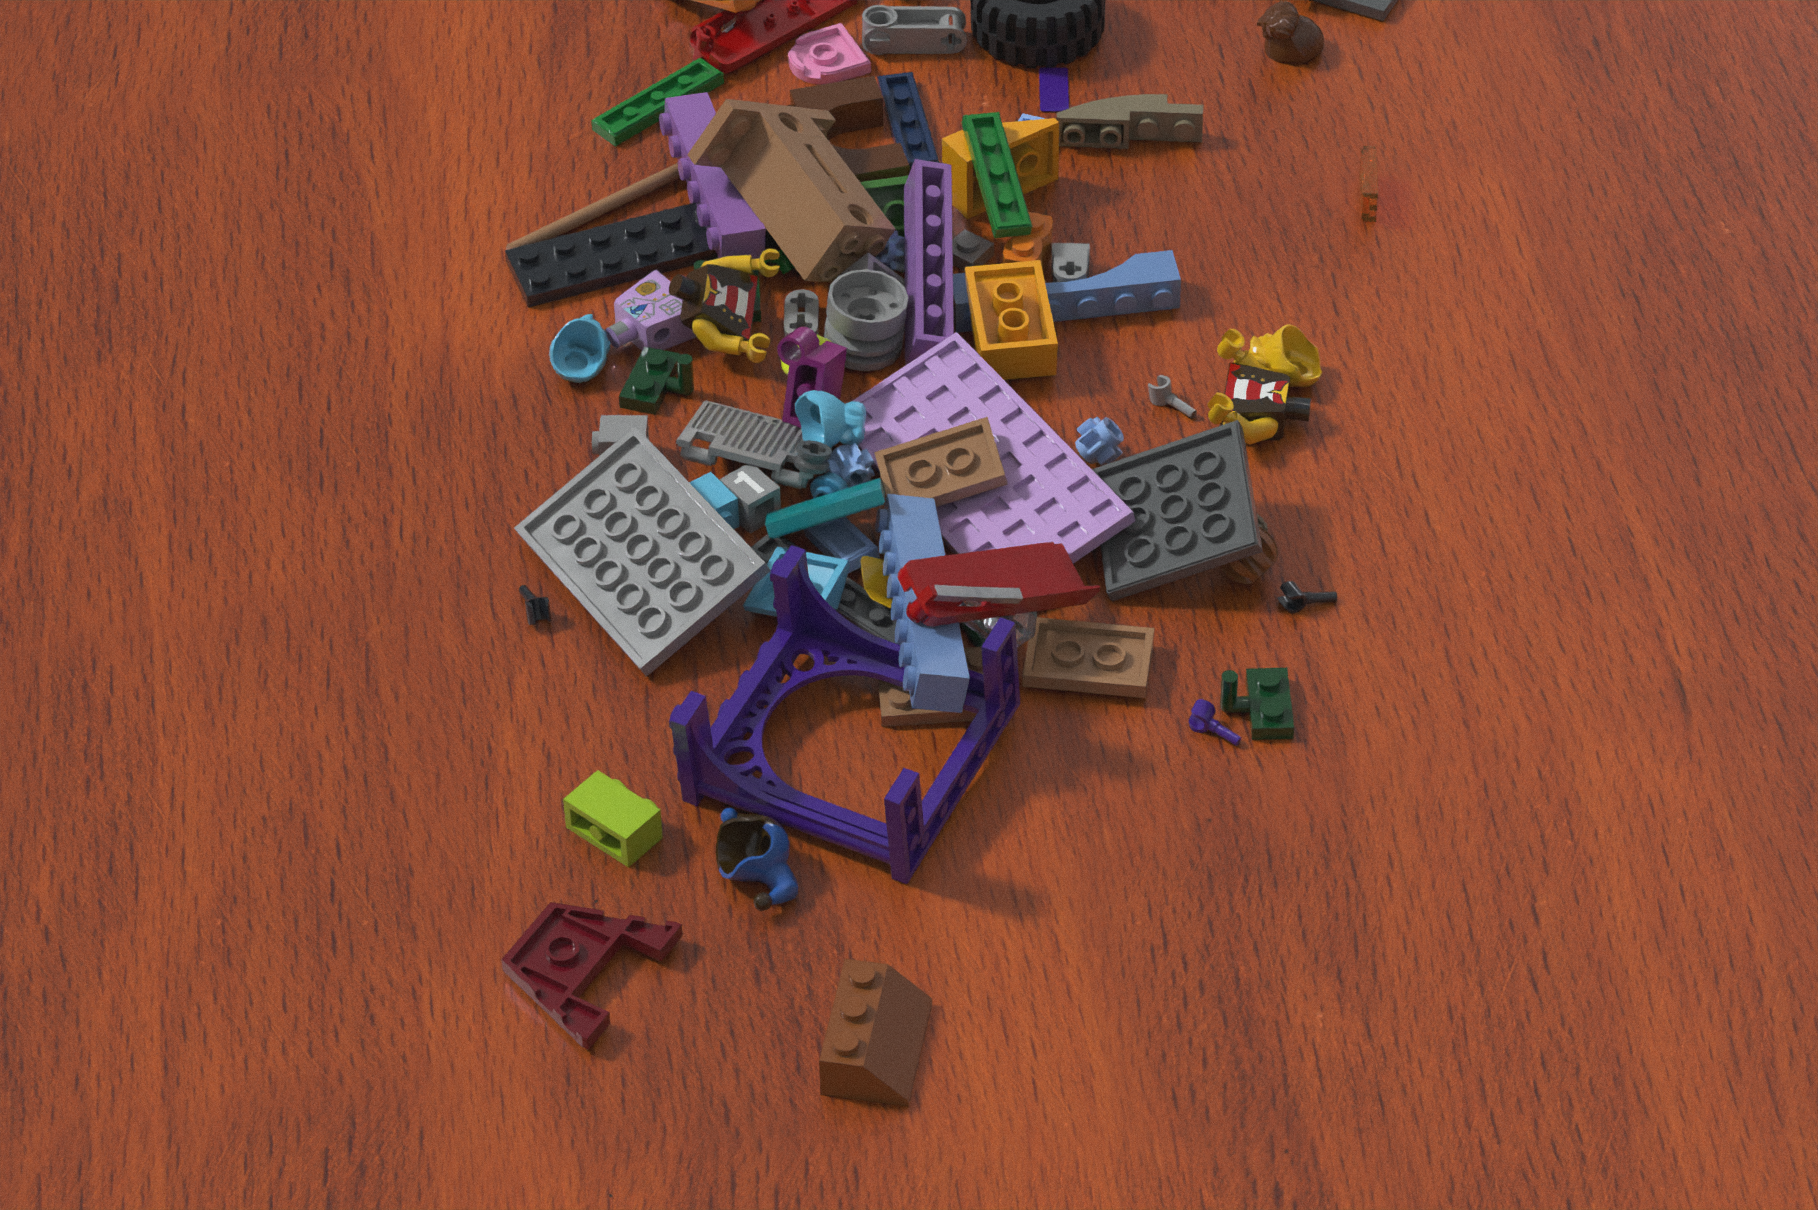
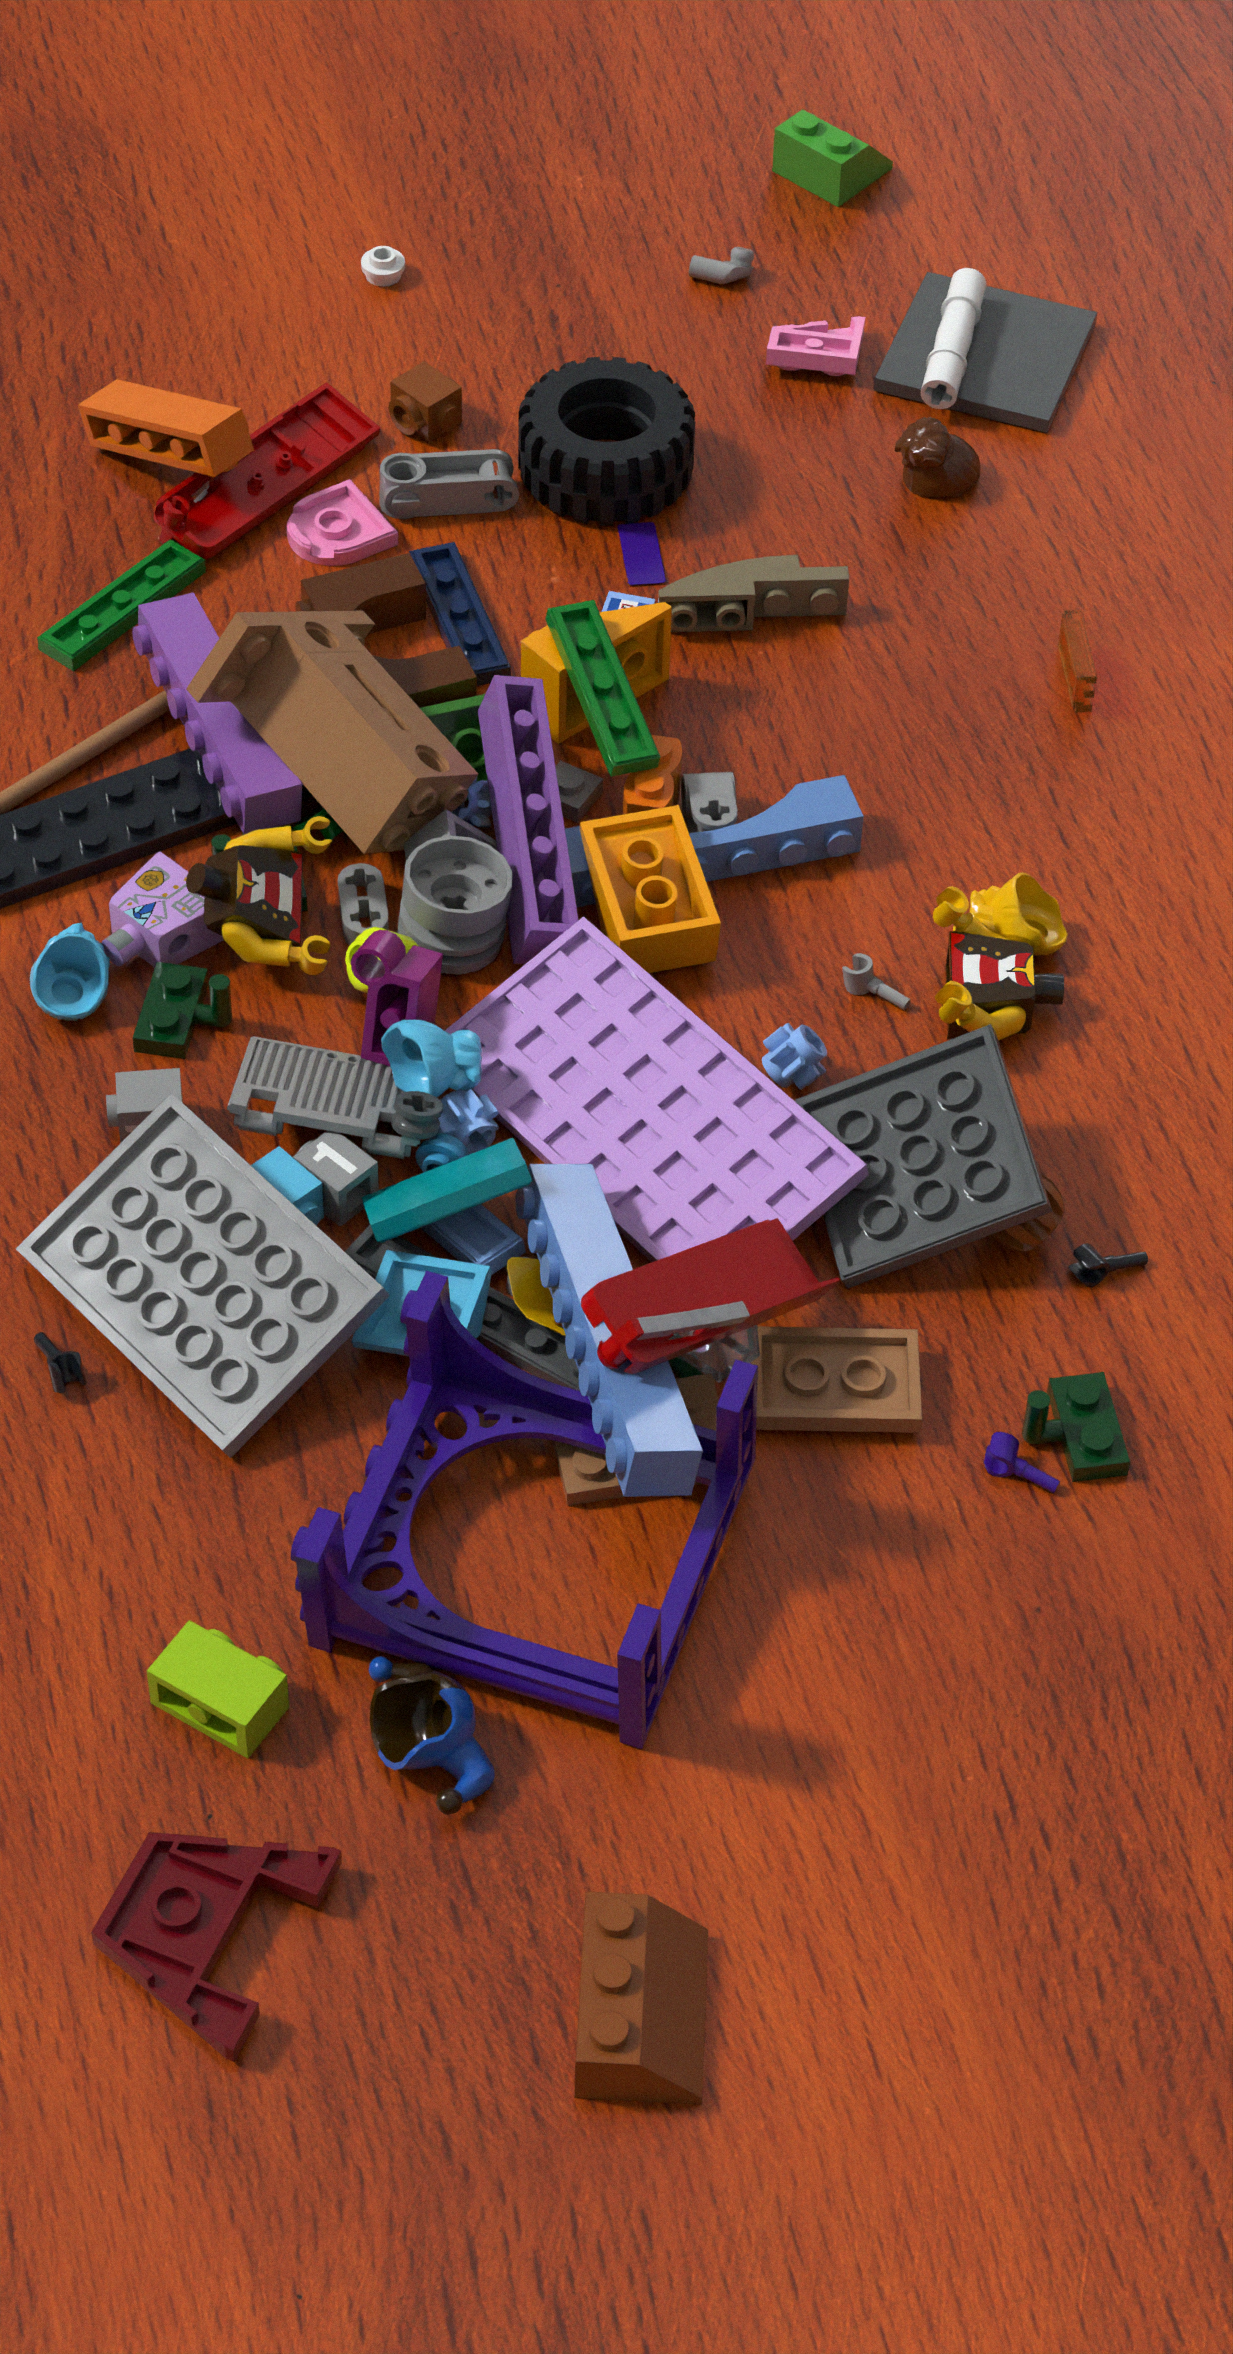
camera: 10 degrees left, 5 degrees up
(944, 464) = (597, 1112): medium nougat plate -> none

